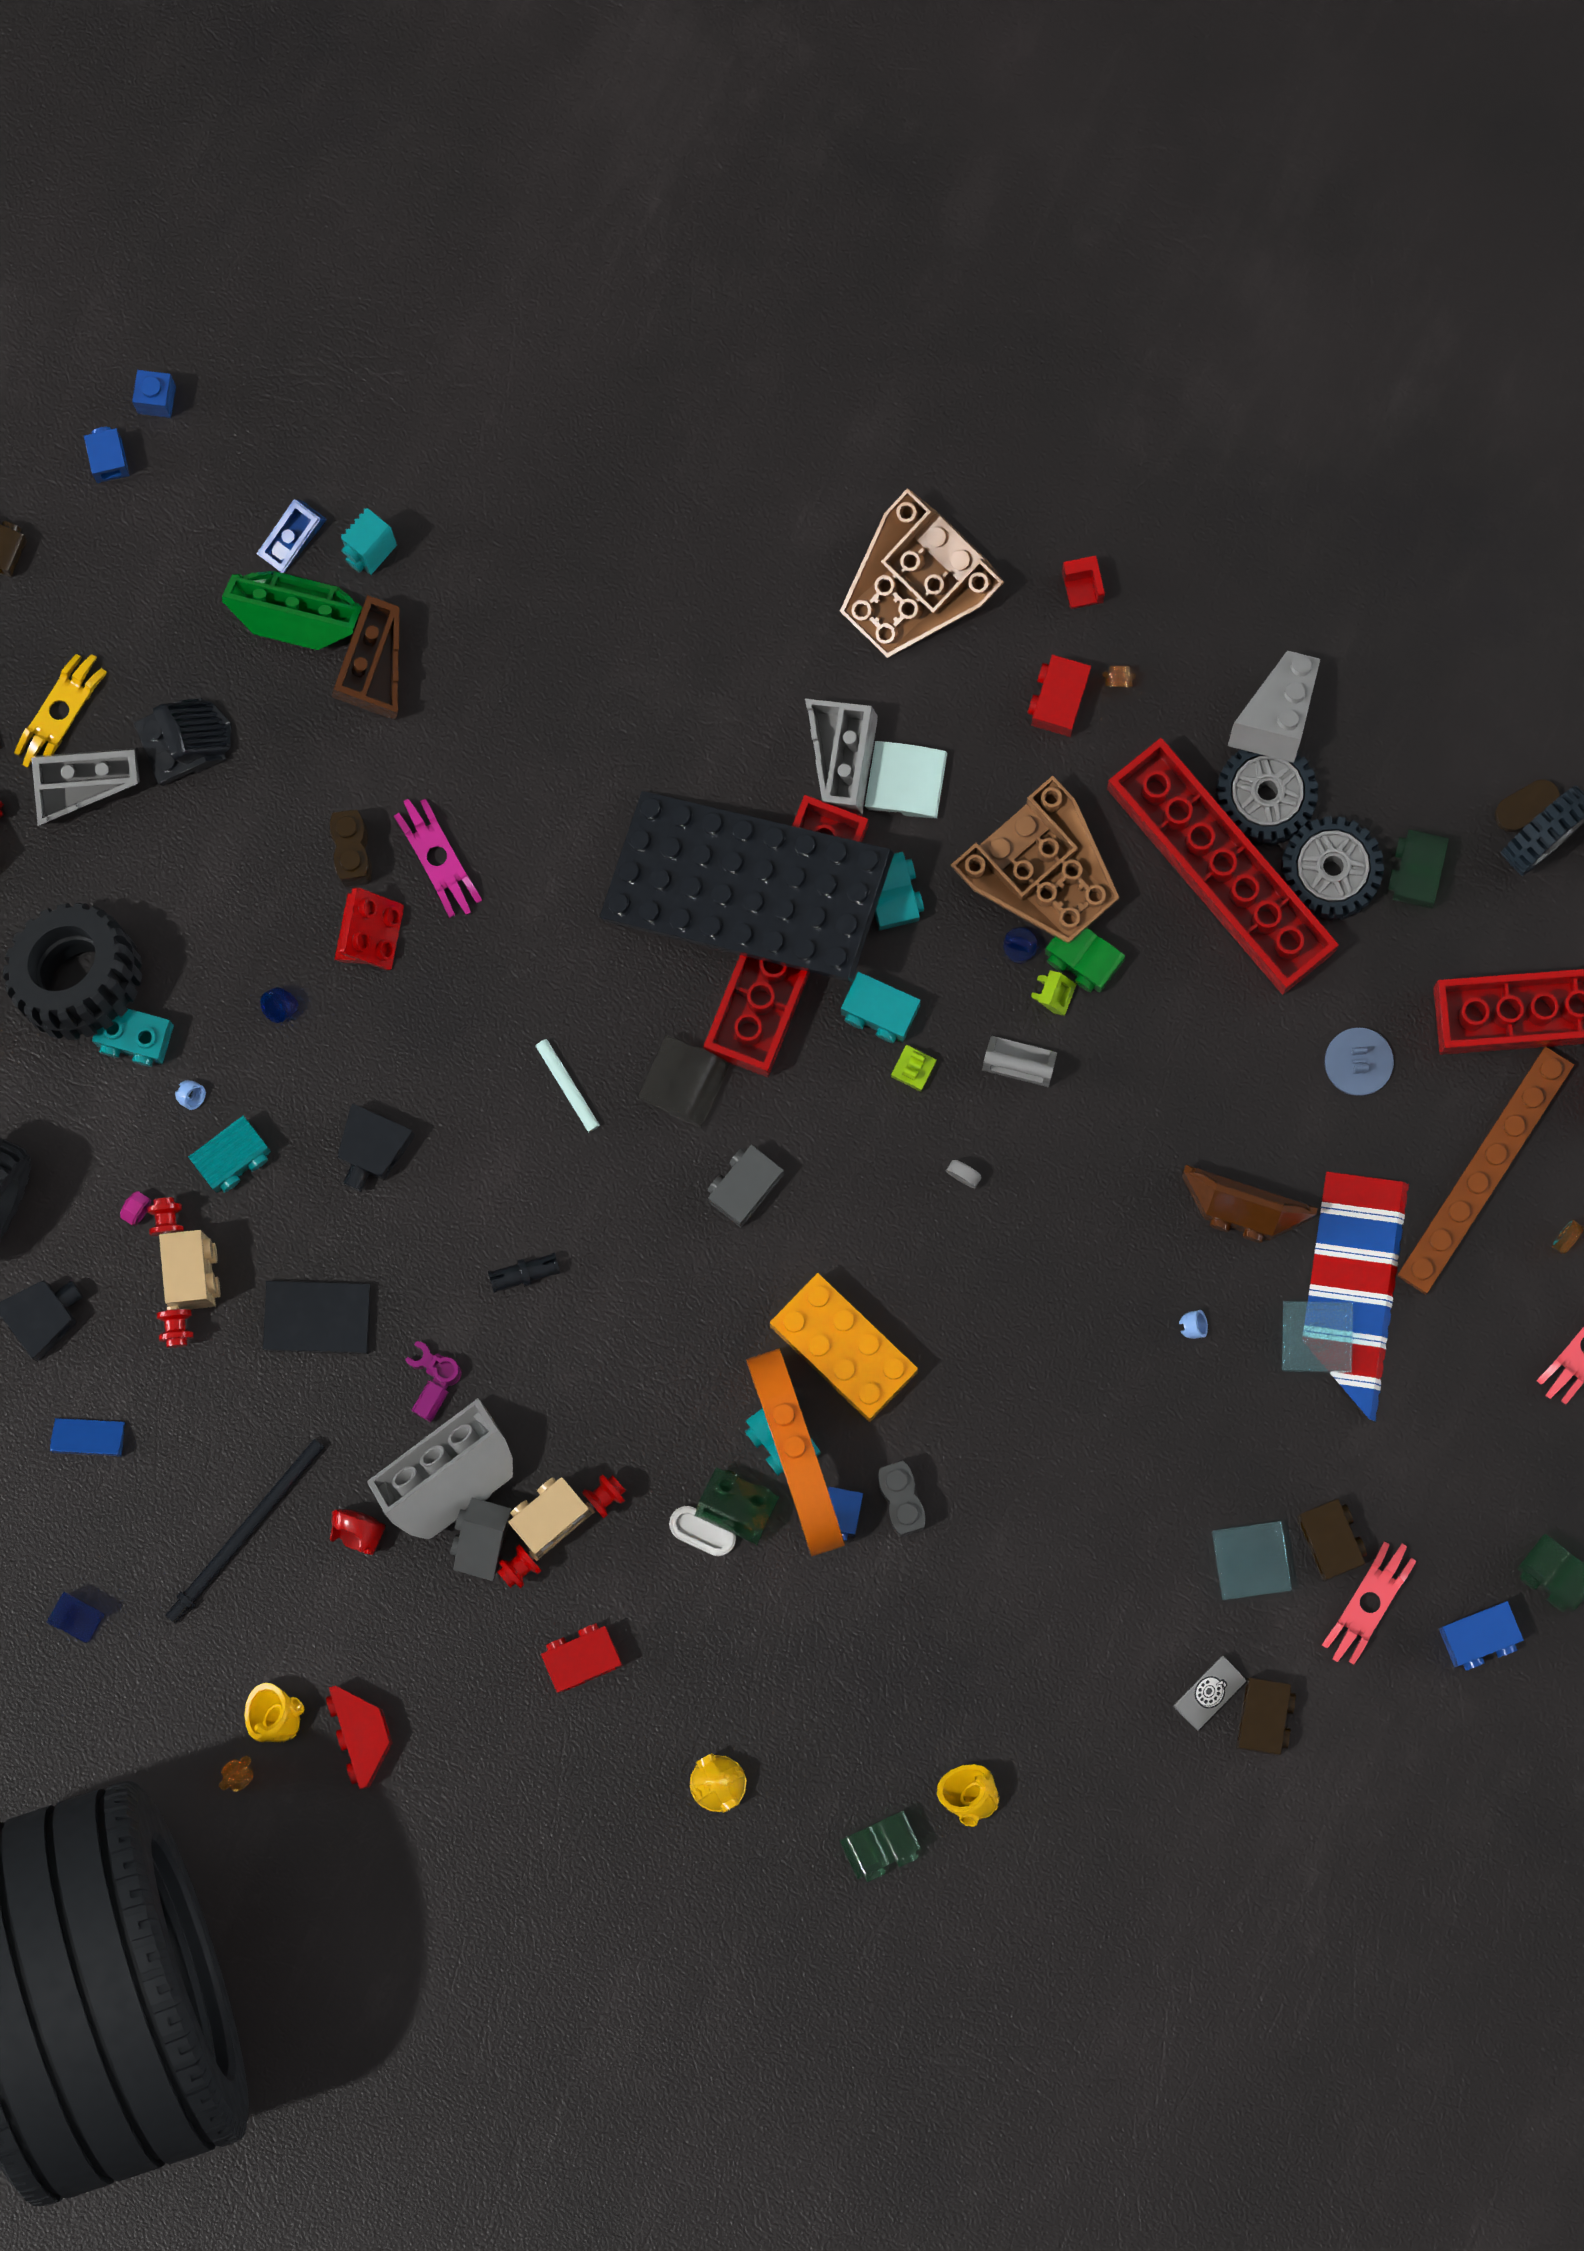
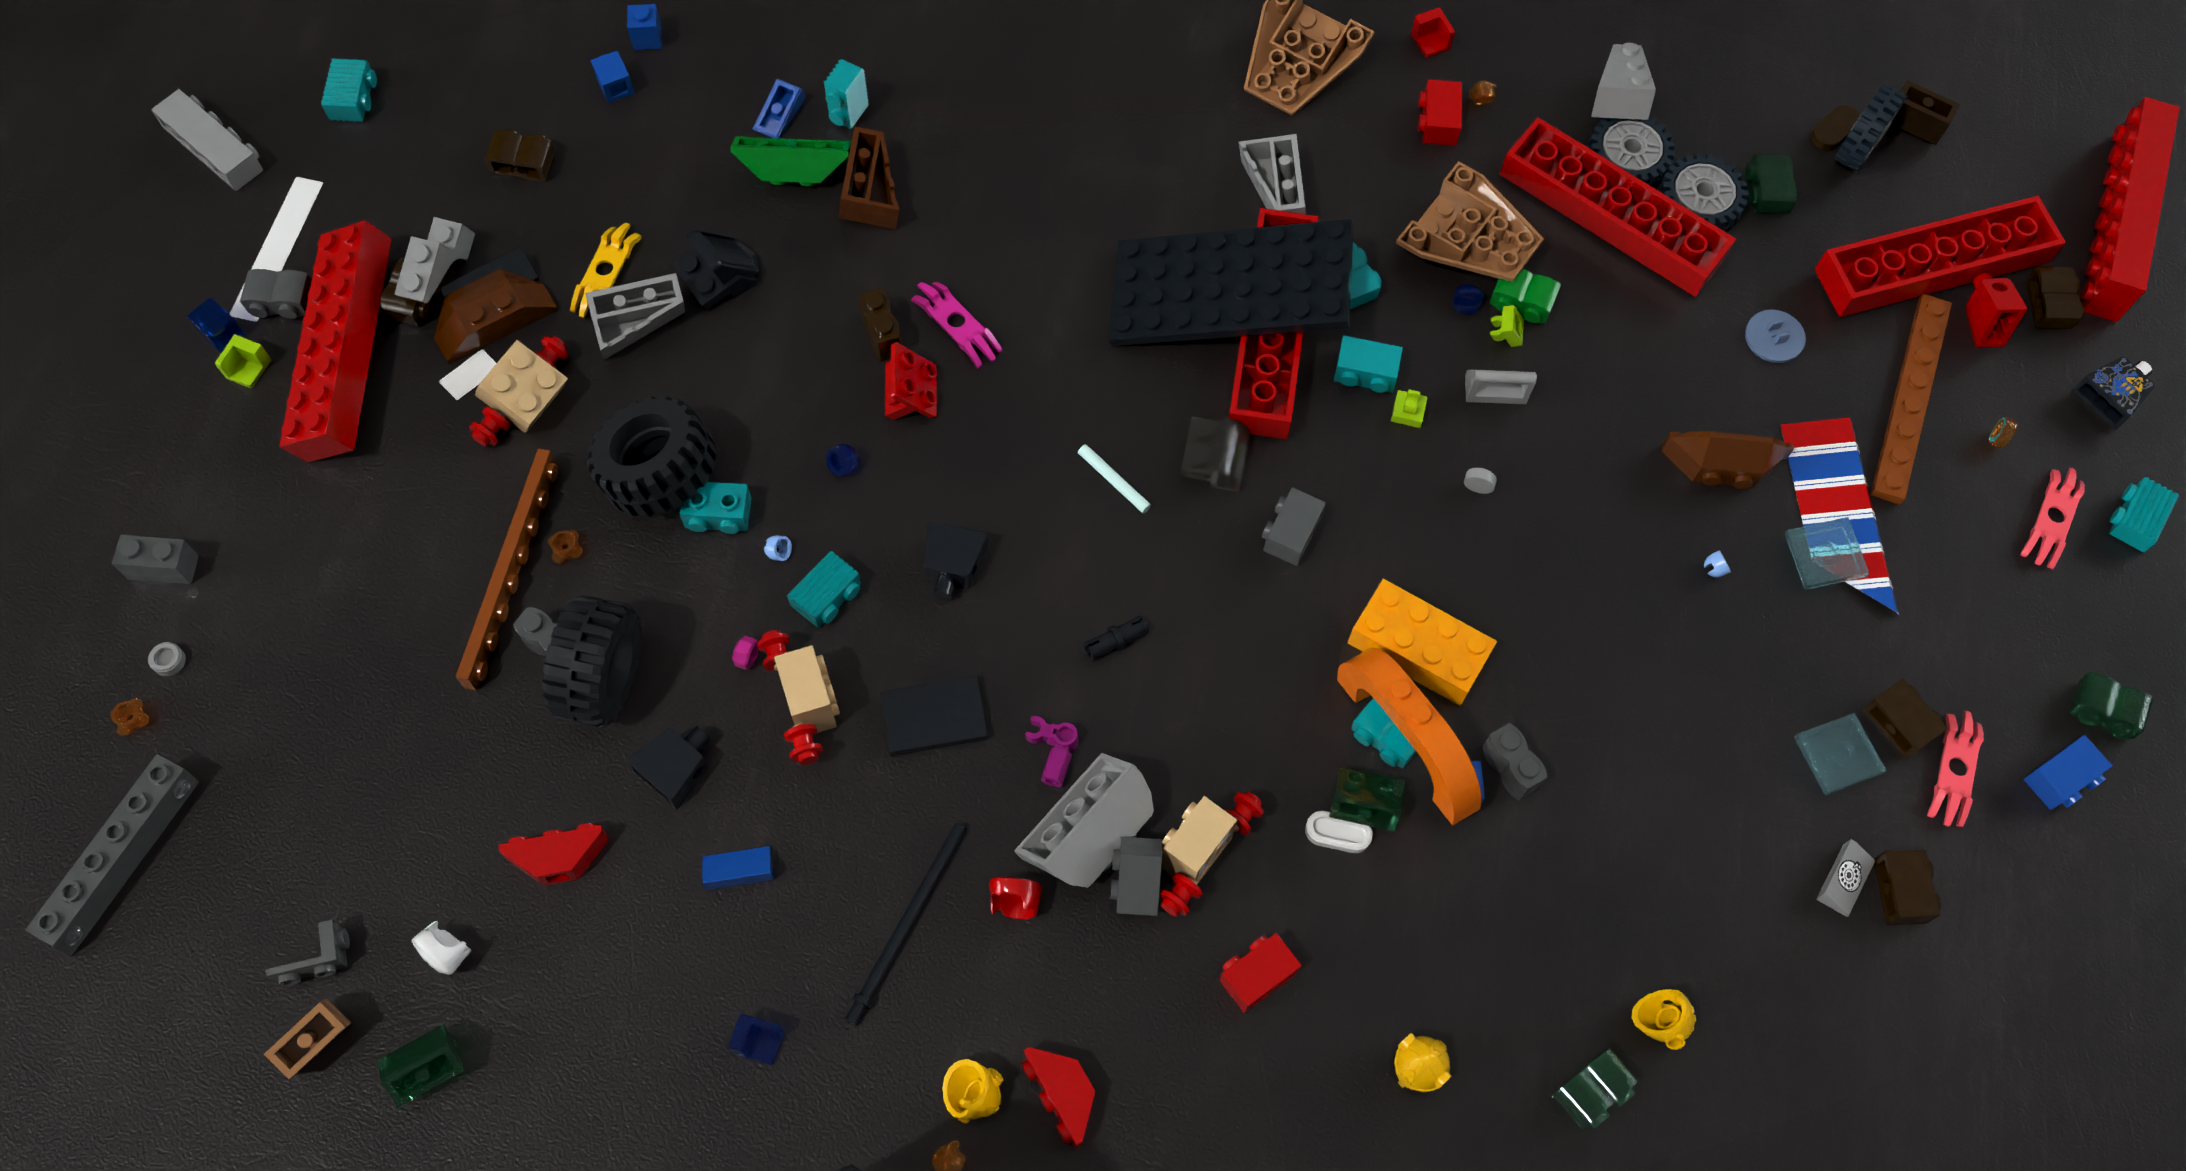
camera: 20 degrees left, 15 degrees down
(906, 779) = (1335, 193): light aqua slope -> none

